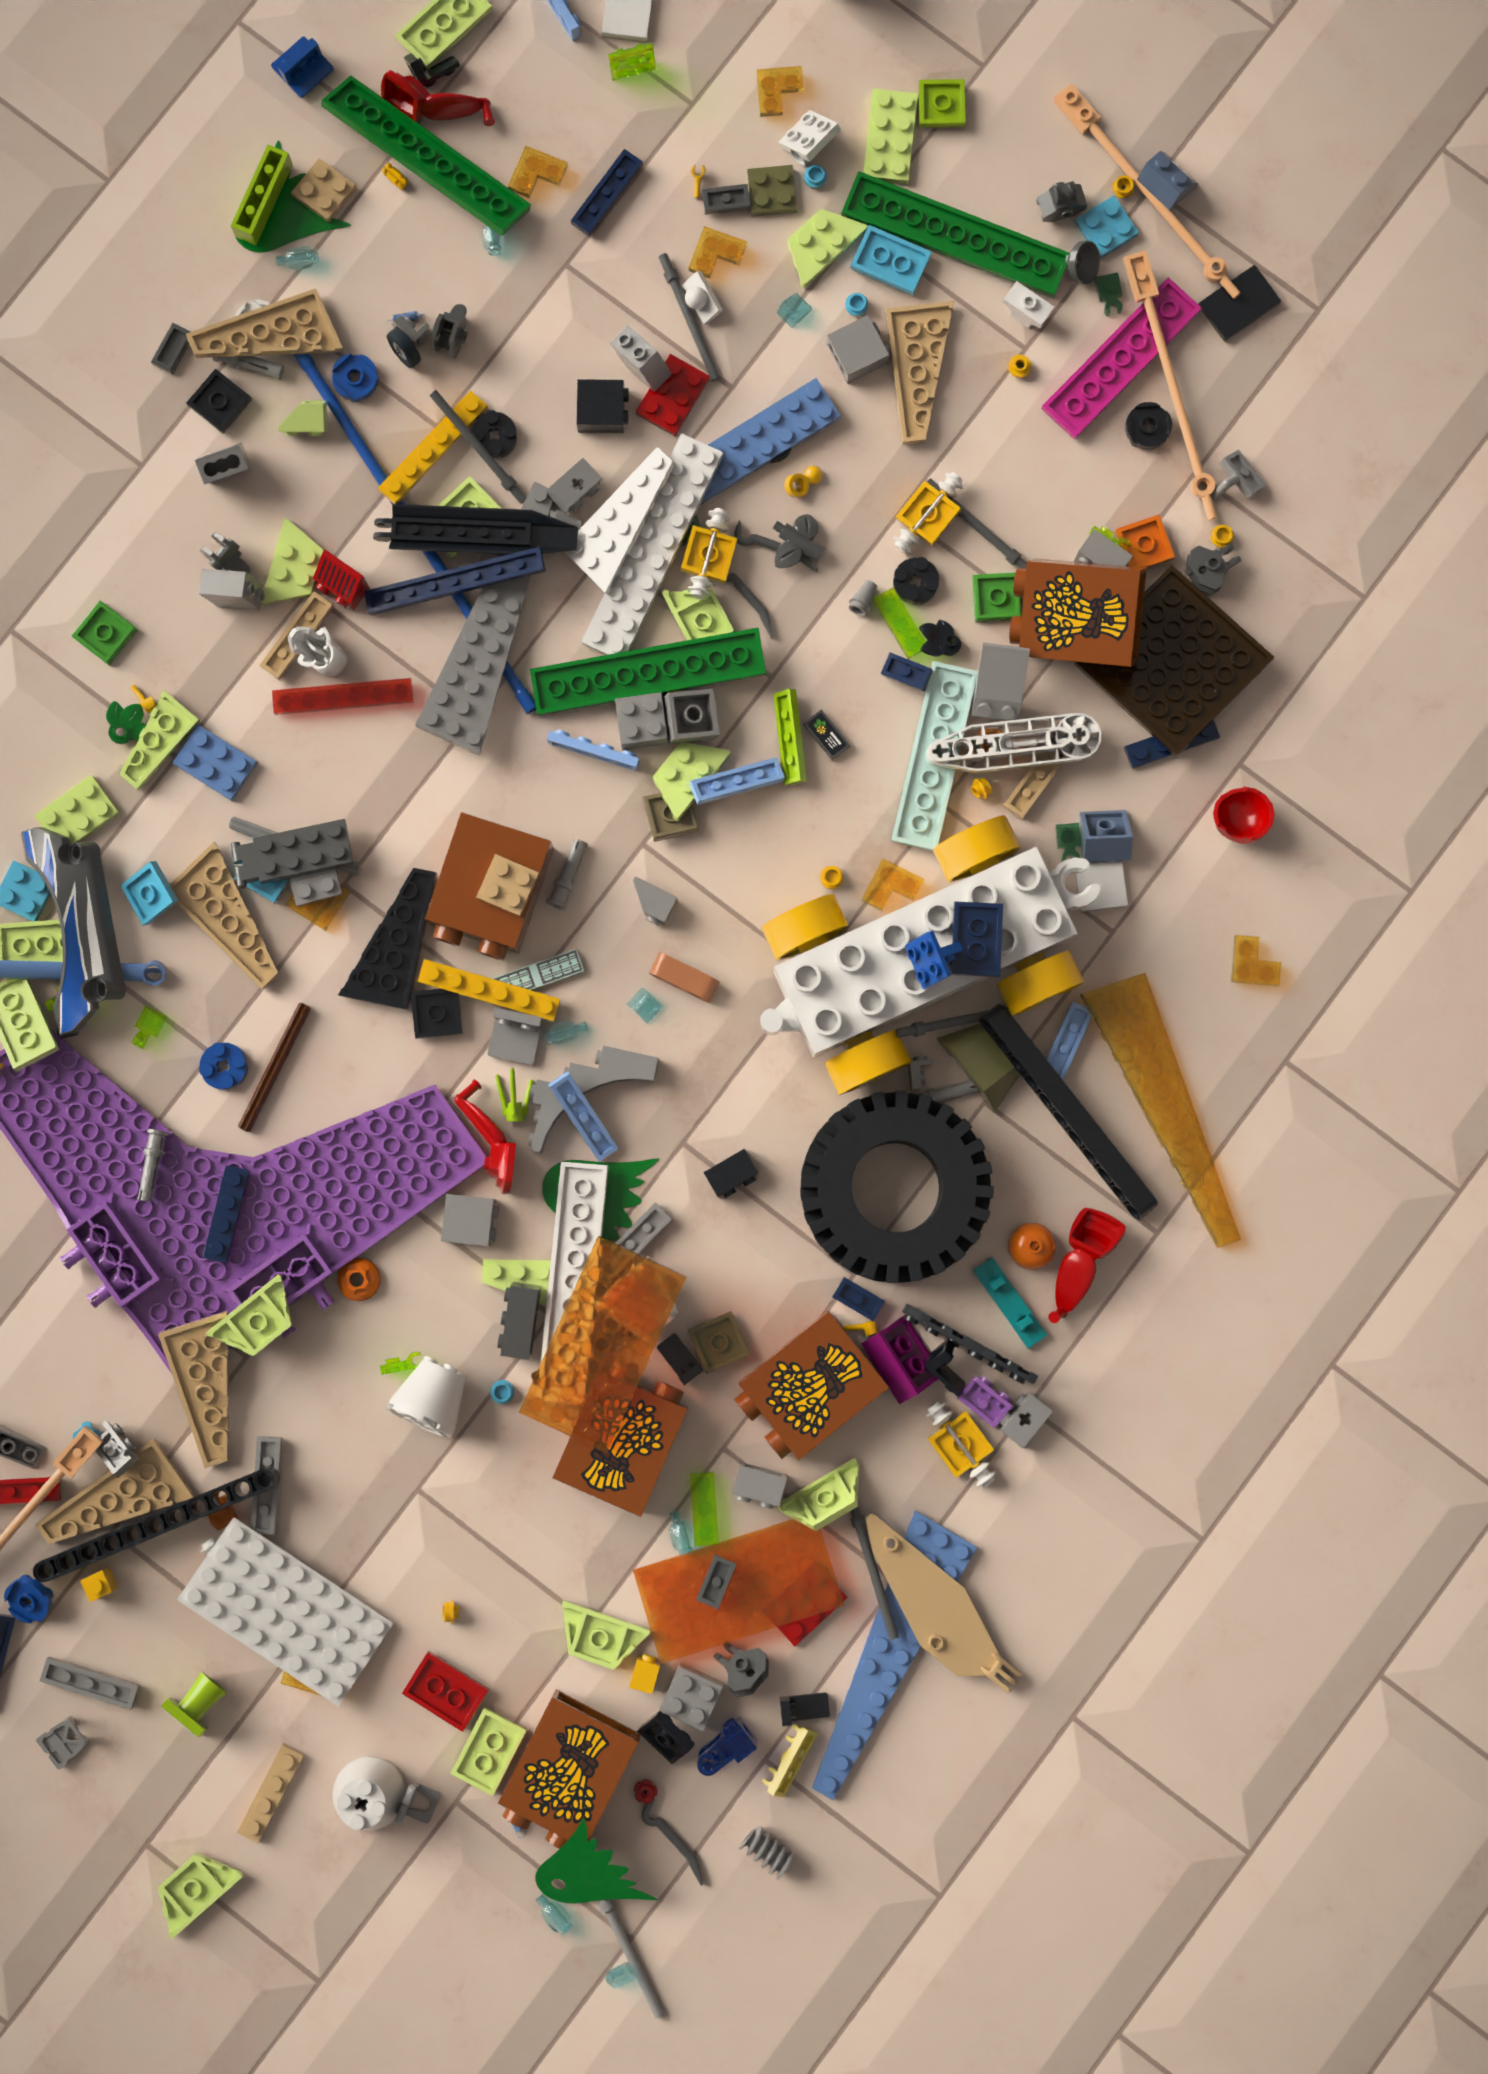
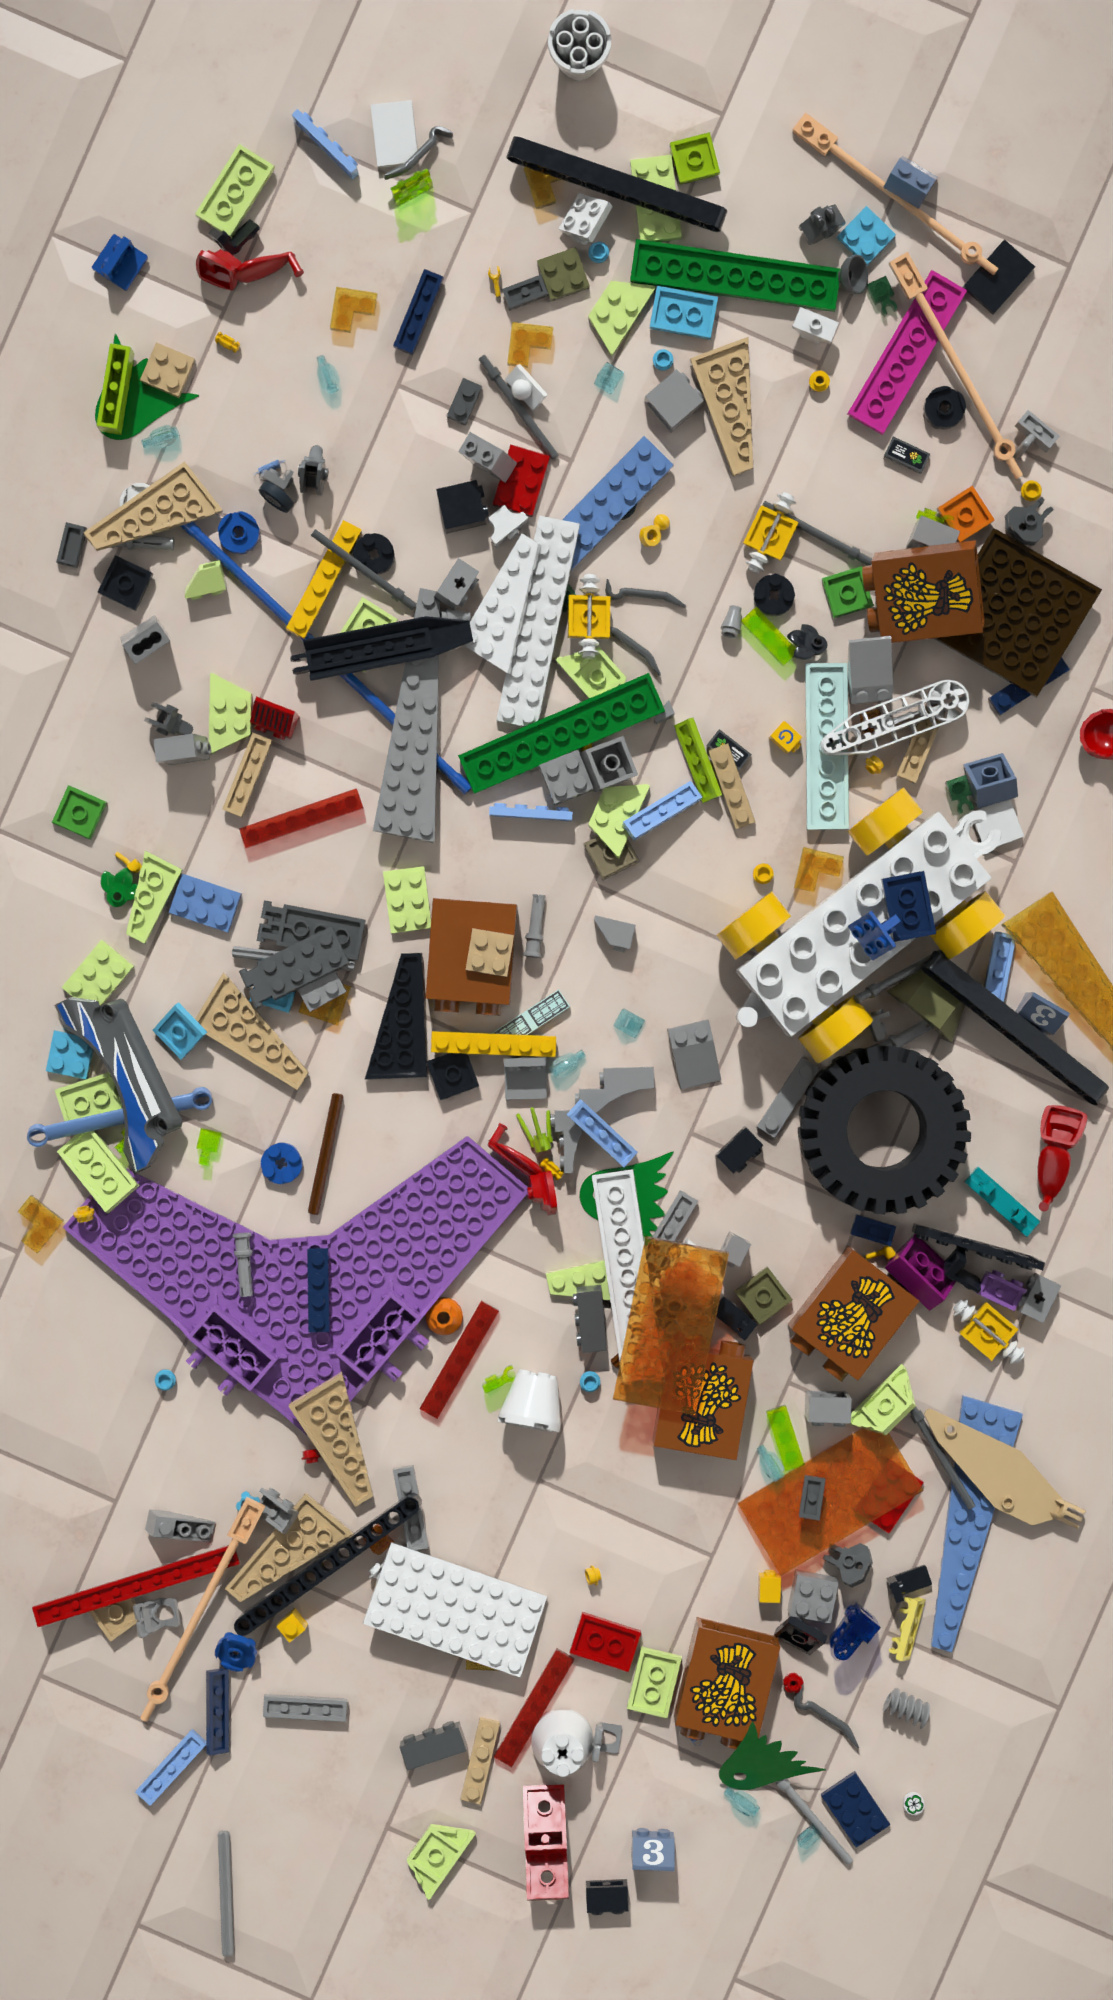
camera: 15 degrees left, 5 degrees up
(32, 1274) = (165, 1379): none -> medium azure plate
(59, 1746) = (292, 1765): light grey piece -> none
(170, 1399) = (311, 1456): none -> red plate
(195, 1704) = (399, 1704): lime plant -> none
(221, 1761) = (433, 1745): none -> dark grey brick
(256, 1319) = (369, 1374): yellowish green wing -> none
(306, 807) = (295, 924): none -> dark grey hinge
(317, 650) = (271, 785): white head -> none
(319, 1905) = (545, 1842): none -> bracket
(346, 1747) = (534, 1707): none -> clear red plate
(363, 1331) = (459, 1359): none -> clear red plate
(373, 1986) = (607, 1896): none -> black brick
(426, 155) = (250, 317): green plate -> none
(435, 811) = (407, 899): none -> yellowish green plate
(438, 1944) = (653, 1850): none -> sand blue slope
(455, 581) = (374, 694): dark blue plate -> none
(469, 1220) = (526, 1244): light grey piece -> none
(521, 1145) = (550, 1166): none -> yellow piece
(600, 1636) = (723, 1565): yellowish green wing -> none
(632, 298) = (464, 401): none -> dark grey plate
(644, 437) = (506, 525): none -> white brick
(650, 29) = (414, 159): none -> dark grey piece
(681, 1956) = (855, 1809): none -> dark blue plate
(684, 977) = (657, 991): nougat beam -> none
(697, 1282) = (737, 1249): none -> light grey brick
(707, 1055) = (694, 1054): none -> light grey slope
(748, 1965) = (913, 1803): none -> tile
(766, 680) = (669, 713): none -> light grey slope
(797, 541) = (663, 585): dark grey plant -> none
(799, 1129) = (788, 1097): none -> light grey plate
(820, 773) = (732, 786): none -> tan plate
(851, 108) = (616, 184): none -> black beam
(892, 736) = (786, 738): none -> yellow brick
(906, 671) = (785, 678): dark blue plate -> none
(1026, 1255) = (1009, 1149): orange cylinder -> none
(1096, 466) = (906, 455): none -> tile
(1102, 1102) = (1041, 1013): none -> sand blue slope
(1123, 181) = (872, 190): yellow plate -> none

